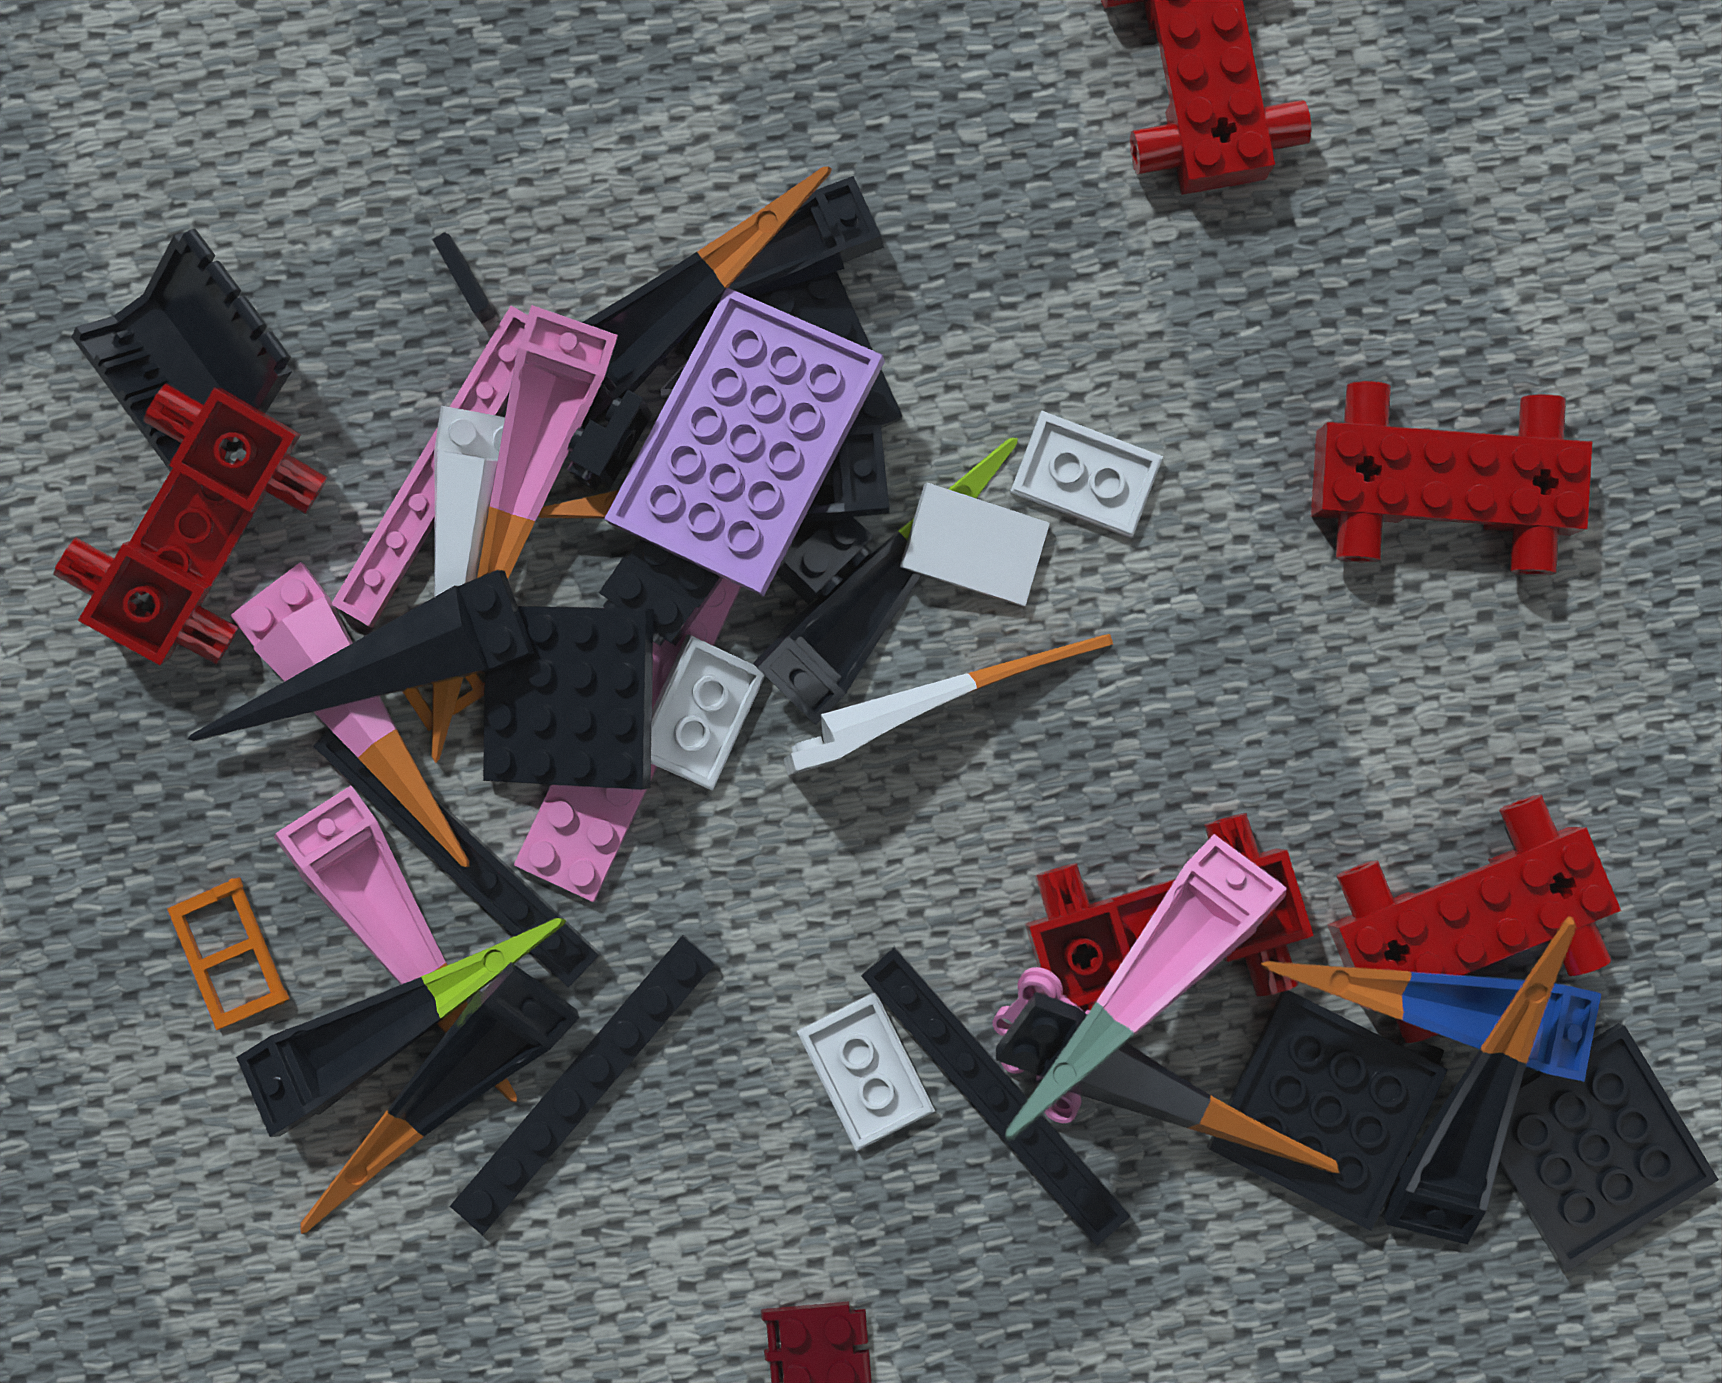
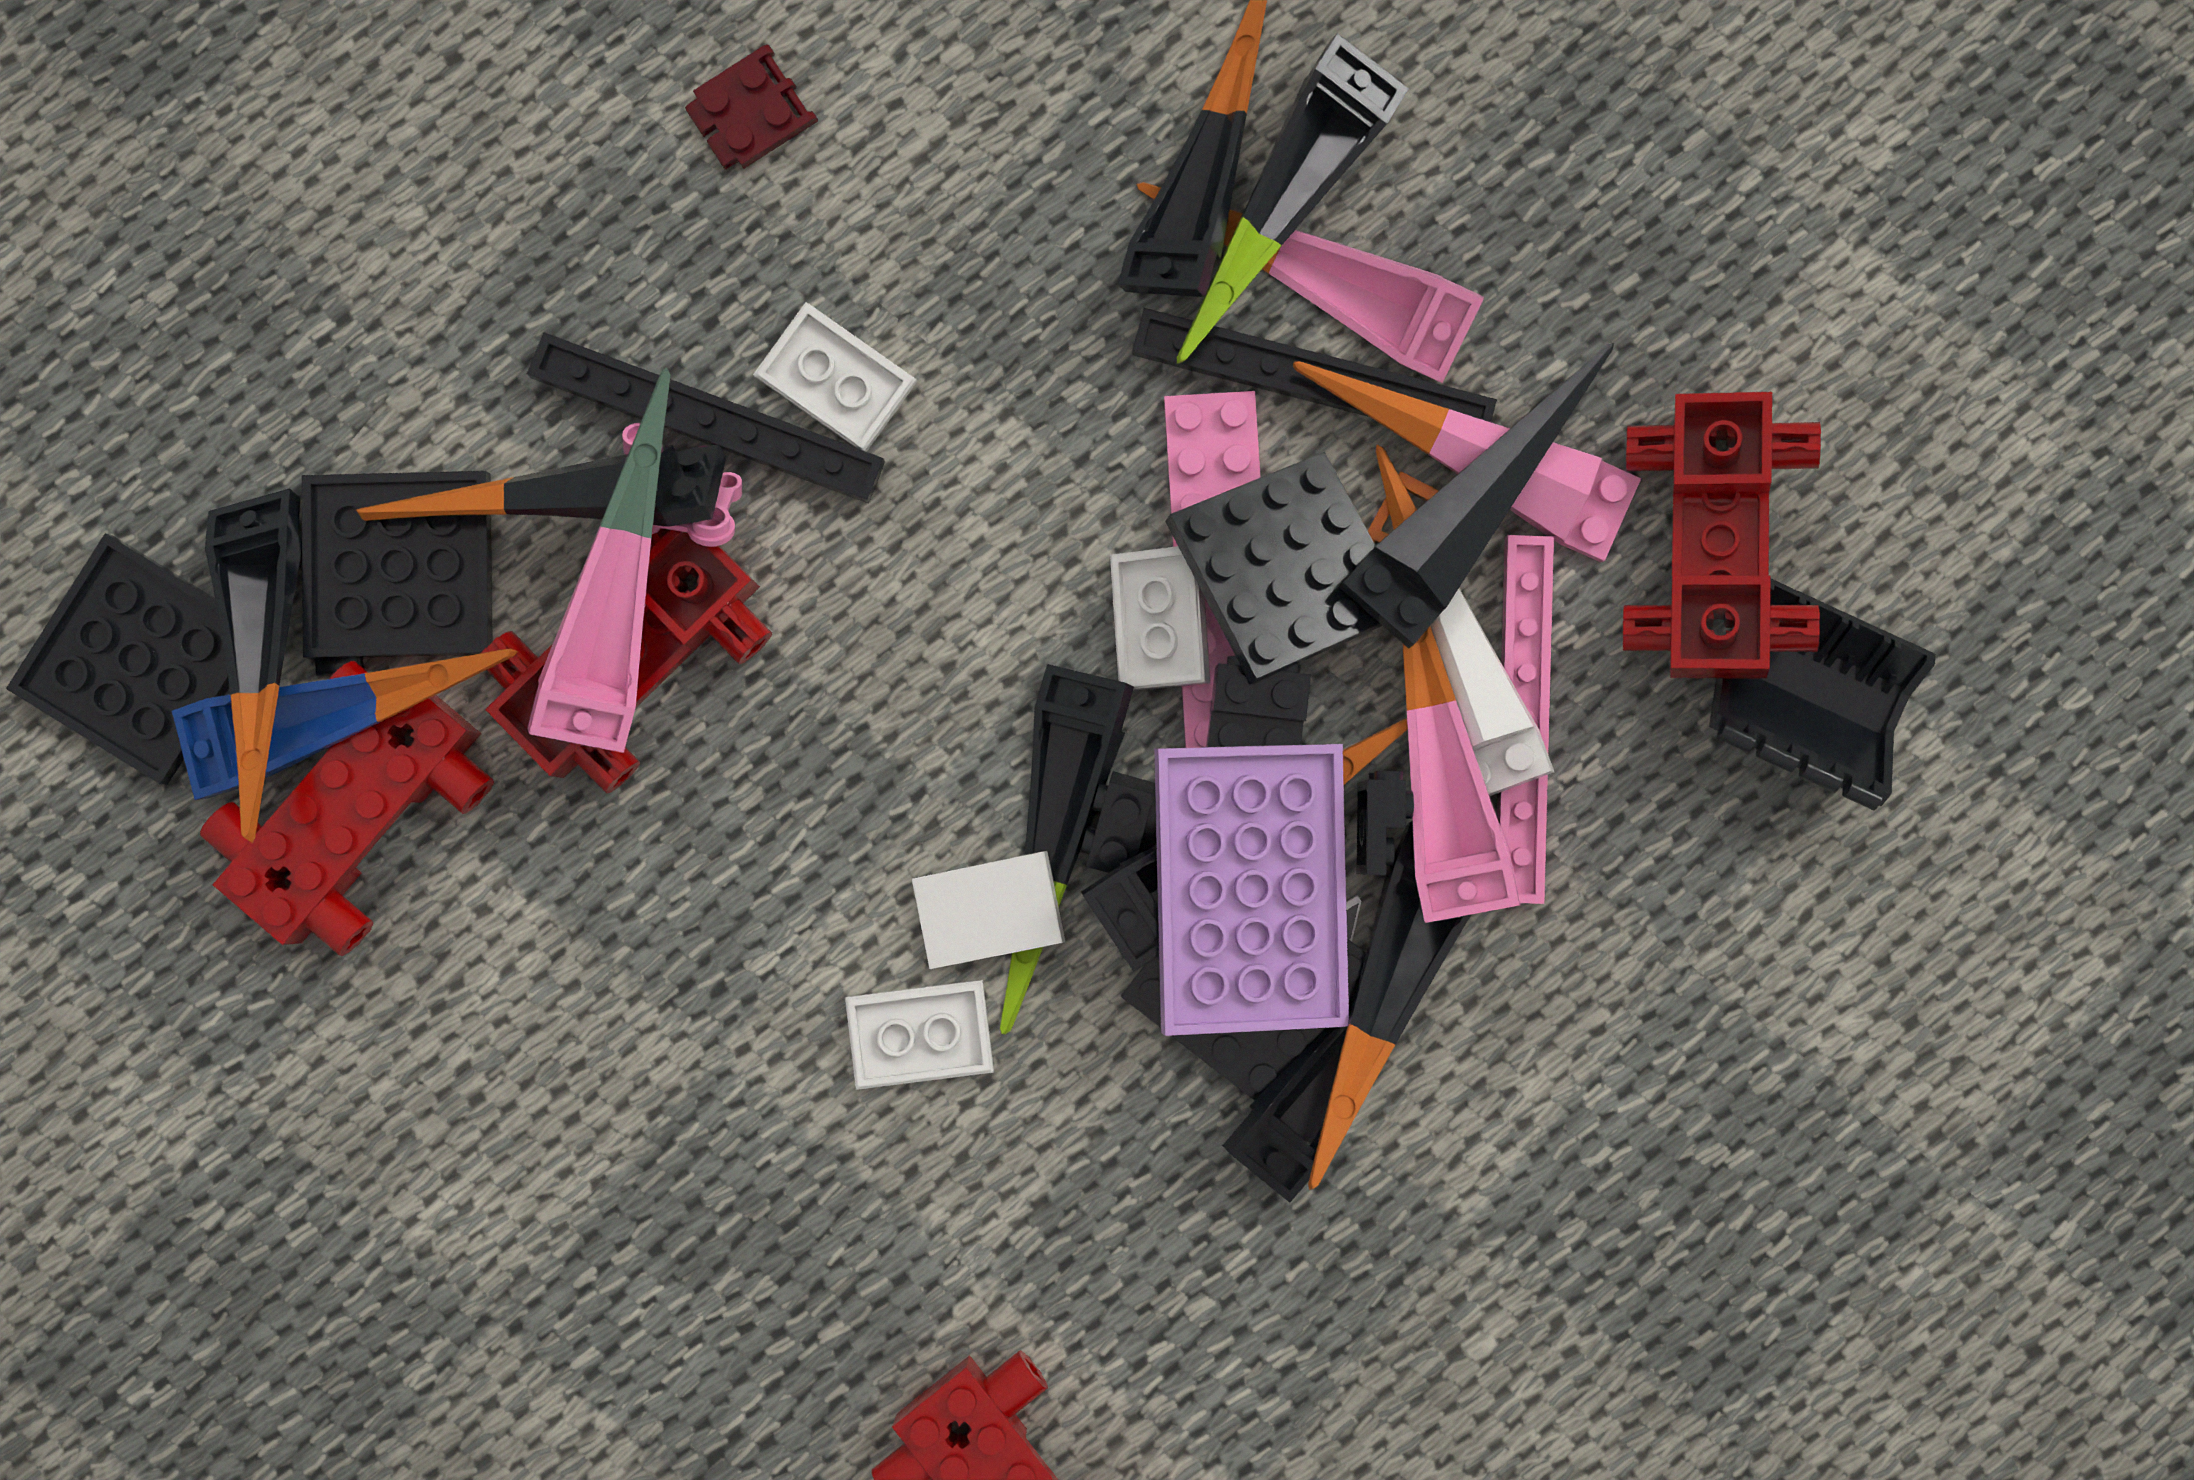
camera: 155 degrees right, 0 degrees up
(256, 942) = (1488, 152): orange window -> none
(464, 277) = (1602, 907): black tile -> none
(582, 1084) = (1084, 232): black plate -> none
(858, 724) = (1001, 686): white plate -> none
(1452, 478) = (571, 1213): red piece -> none

